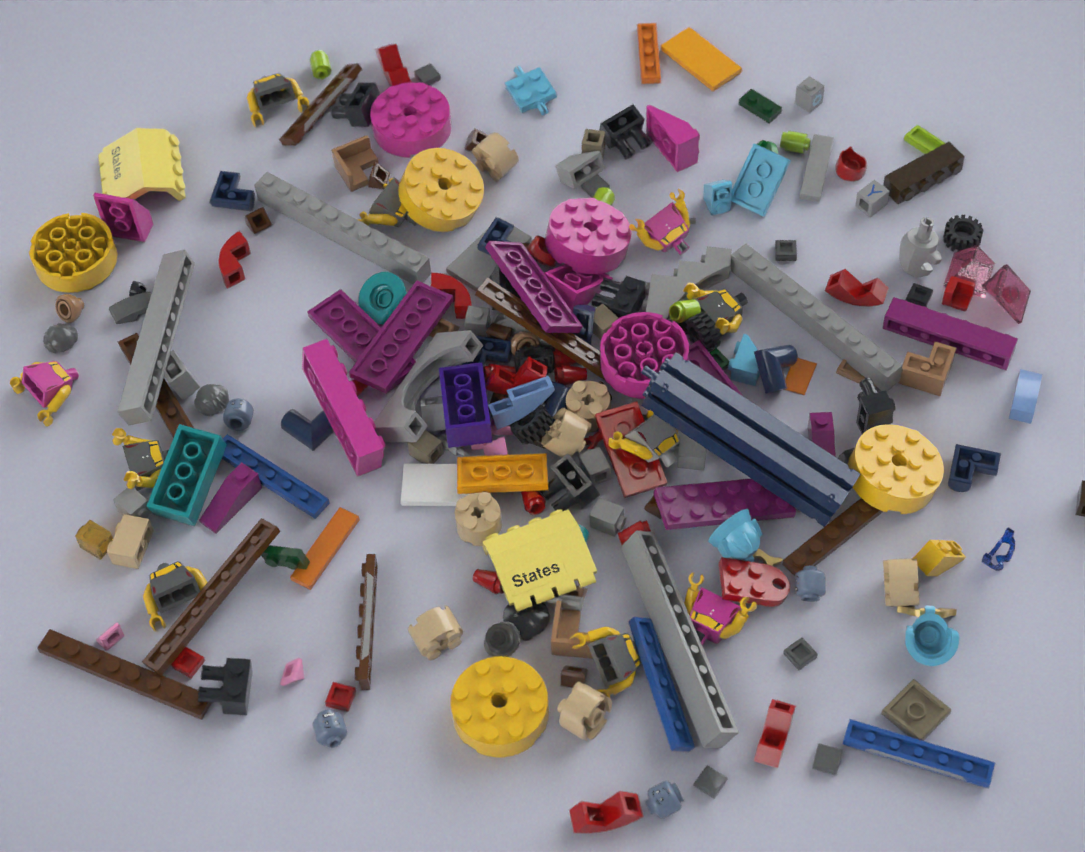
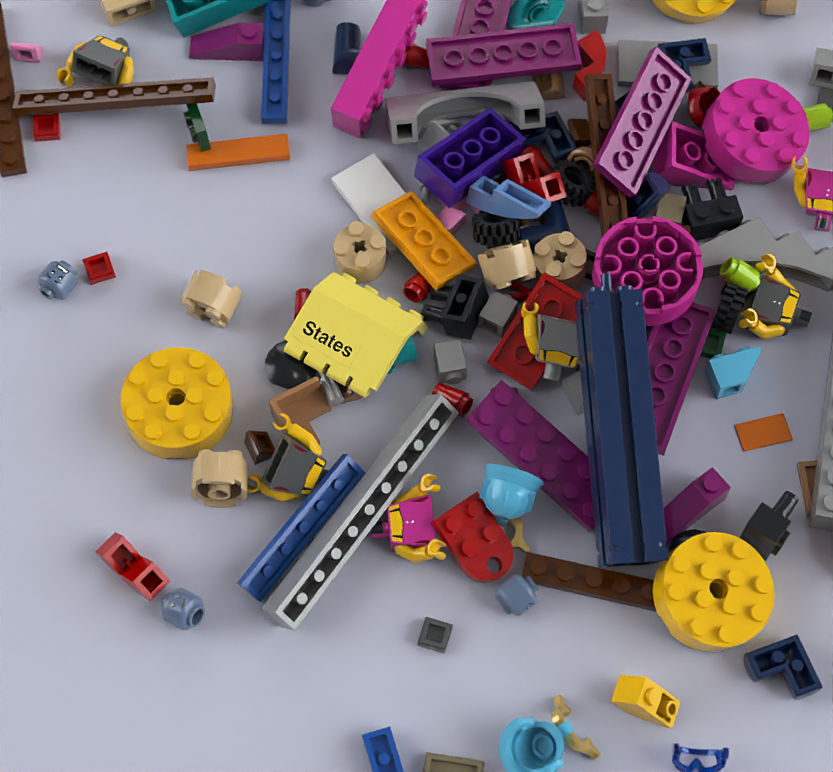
camera: 50 degrees right, 10 degrees up
(236, 685) = (44, 177): black brick -> none
(292, 672) = (93, 214): bright pink slope -> none
(366, 630) = (185, 237): reddish brown plate -> none
(426, 449) = (403, 160): dark tan brick -> none
(477, 320) = (573, 104): light grey brick -> none
(502, 639) = (247, 359): dark grey hair -> none
(569, 374) = (584, 223): red cone -> none
(710, 781) = (235, 639): dark grey slope -> none
(770, 366) = (744, 392): dark blue brick -> none
(775, 733) = (327, 666): brick -> none
(827, 759) = (335, 732): dark grey tile -> none
(901, 582) = (581, 680): tan brick -> none

